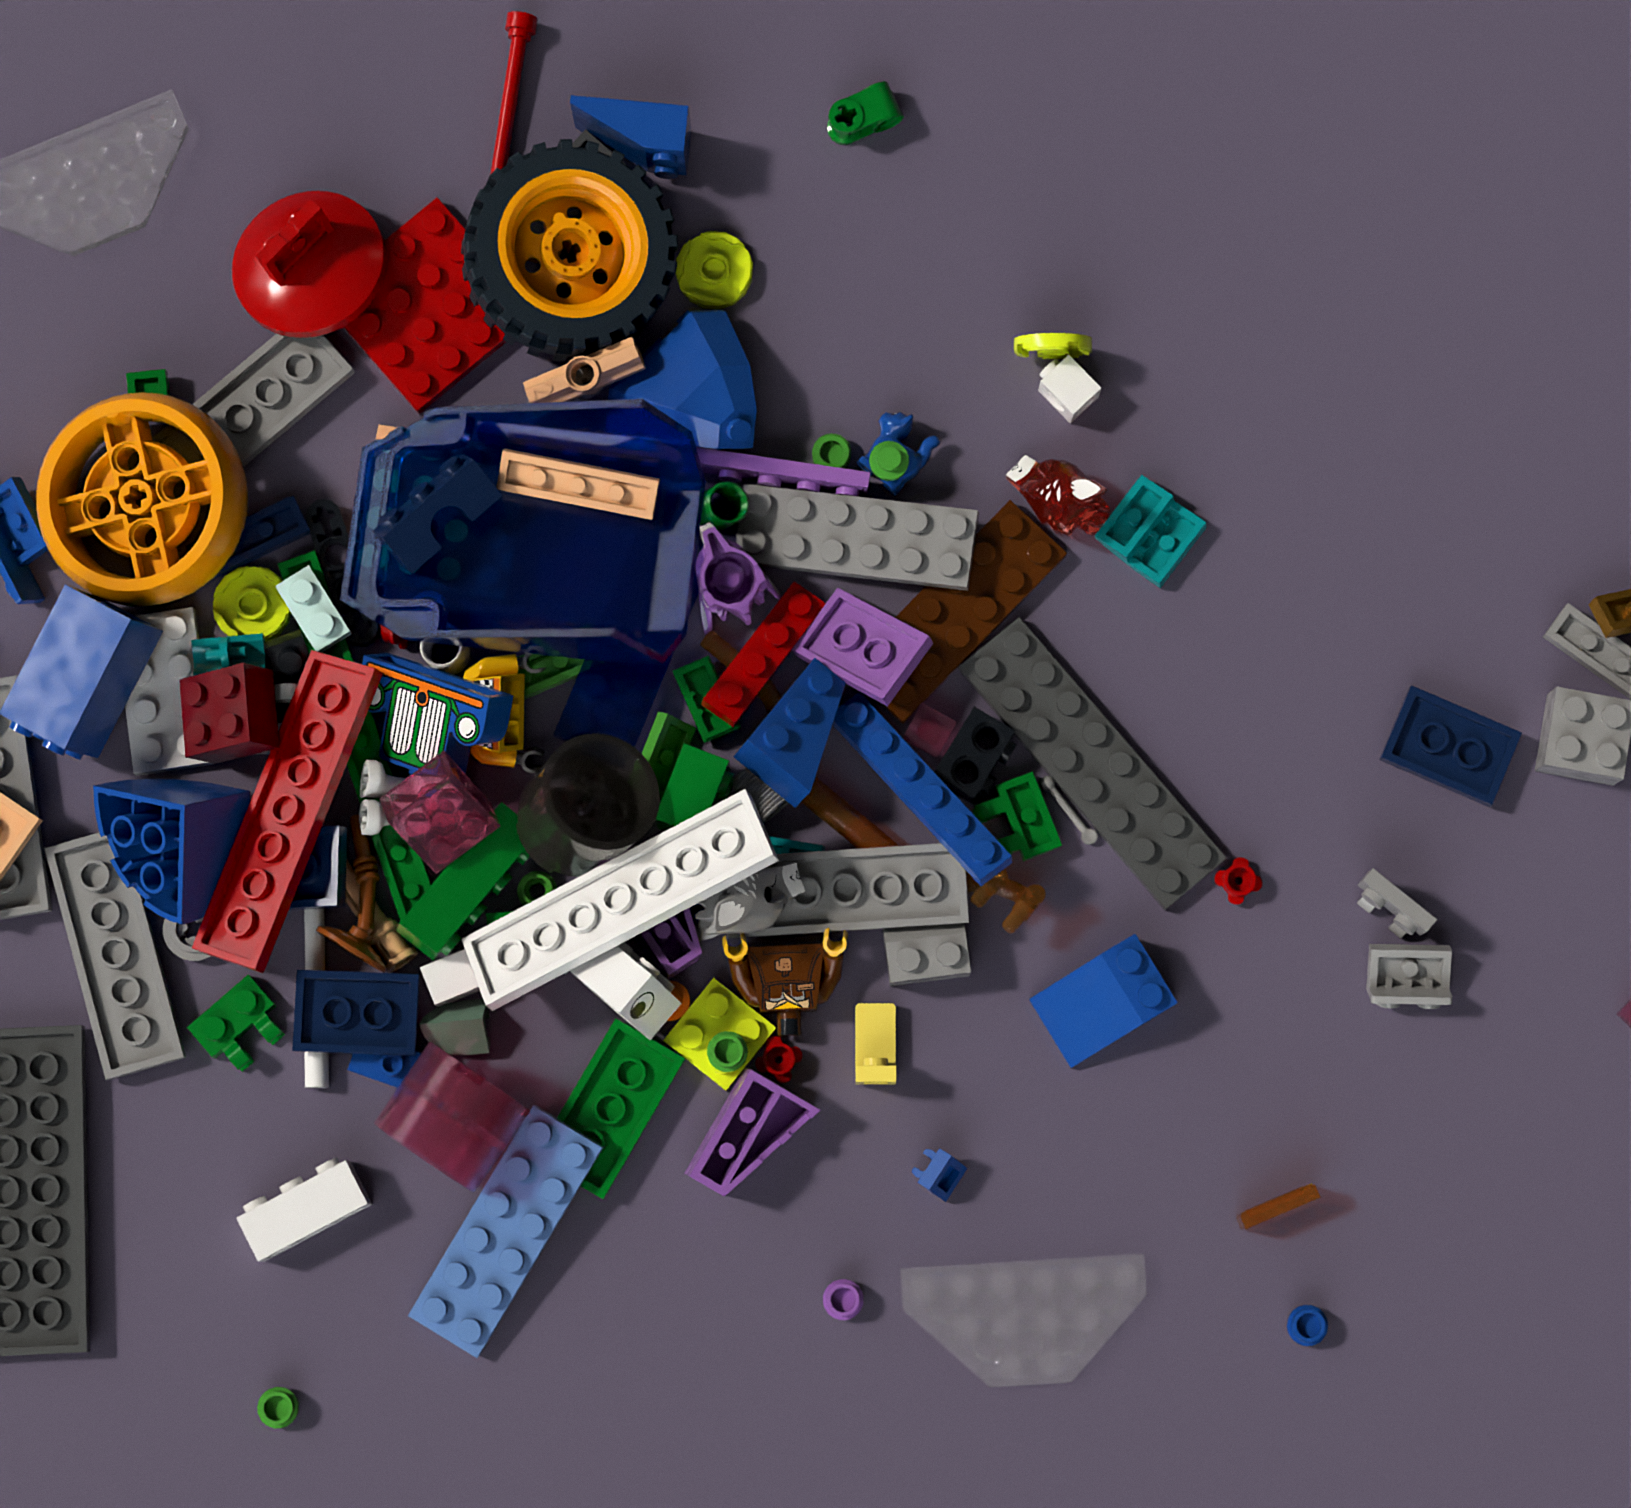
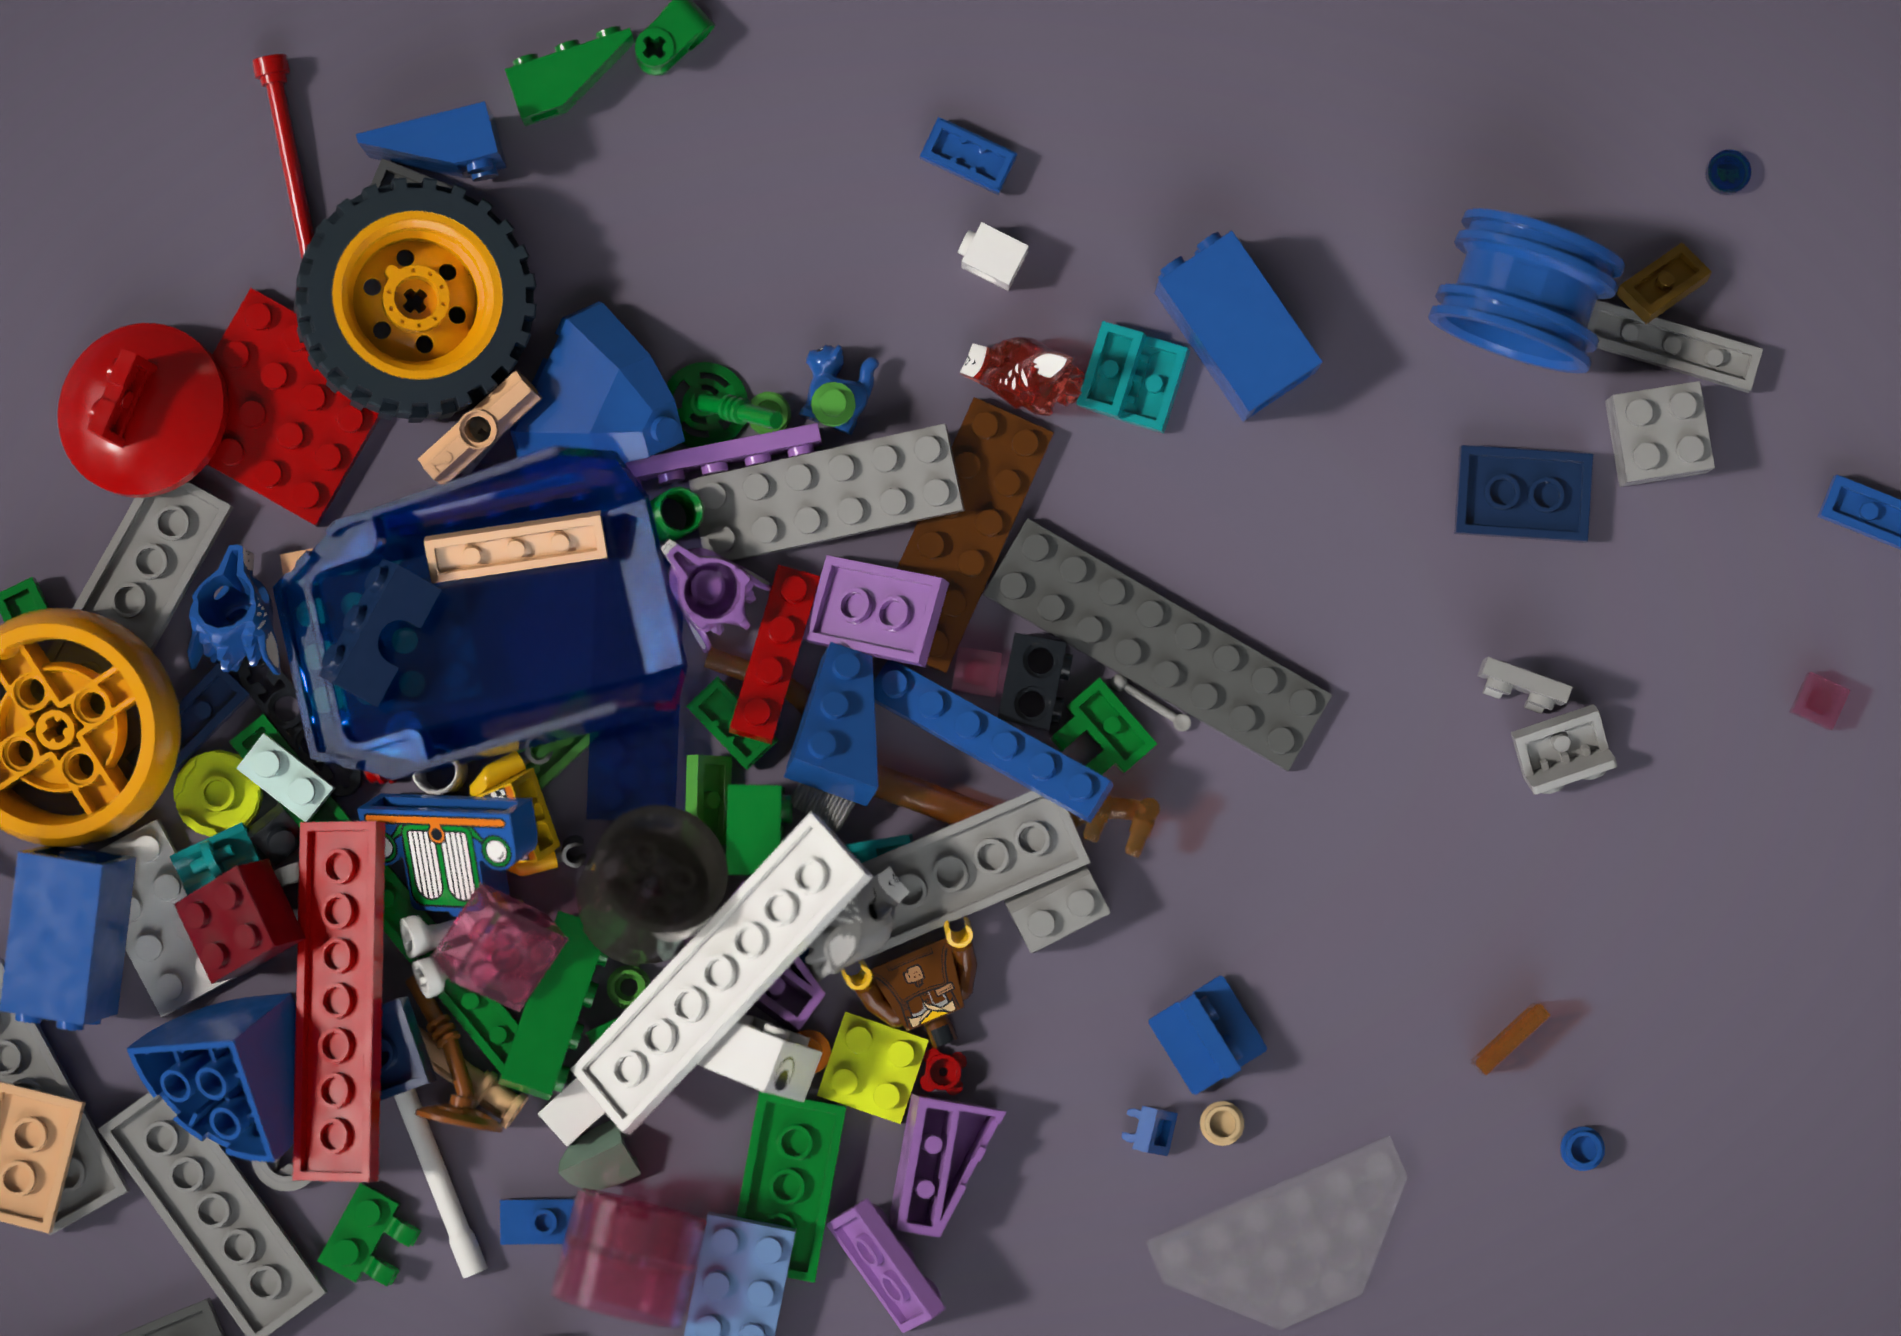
camera: 20 degrees left, 5 degrees up
(319, 466) = (236, 620): none -> blue piece
(356, 1012) = (488, 1184): dark blue plate -> none
(669, 1205) = (886, 1265): none -> medium lavender plate
(714, 270) = (573, 260): neon yellow tile -> none
(727, 1051) = (888, 1085): bright green plate -> none
(756, 117) = (557, 81): none -> green slope
(787, 430) = (729, 404): none -> green dish
(843, 1299) = (1098, 1294): medium lavender plate -> none
(875, 1044) = (1037, 1020): light yellow bracket -> none
(1002, 1190) = (1222, 1123): none -> tan plate
(1016, 1109) = (1207, 1035): none -> blue bracket
(1053, 345) = (961, 218): neon yellow tile -> none
(1077, 298) = (968, 155): none -> blue plate
(1103, 1000) = (1257, 890): blue slope -> none
(1241, 869) = (1340, 715): red plate -> none
(1255, 515) = (1236, 324): none -> blue brick
(1514, 569) = (1526, 290): none -> blue wheel

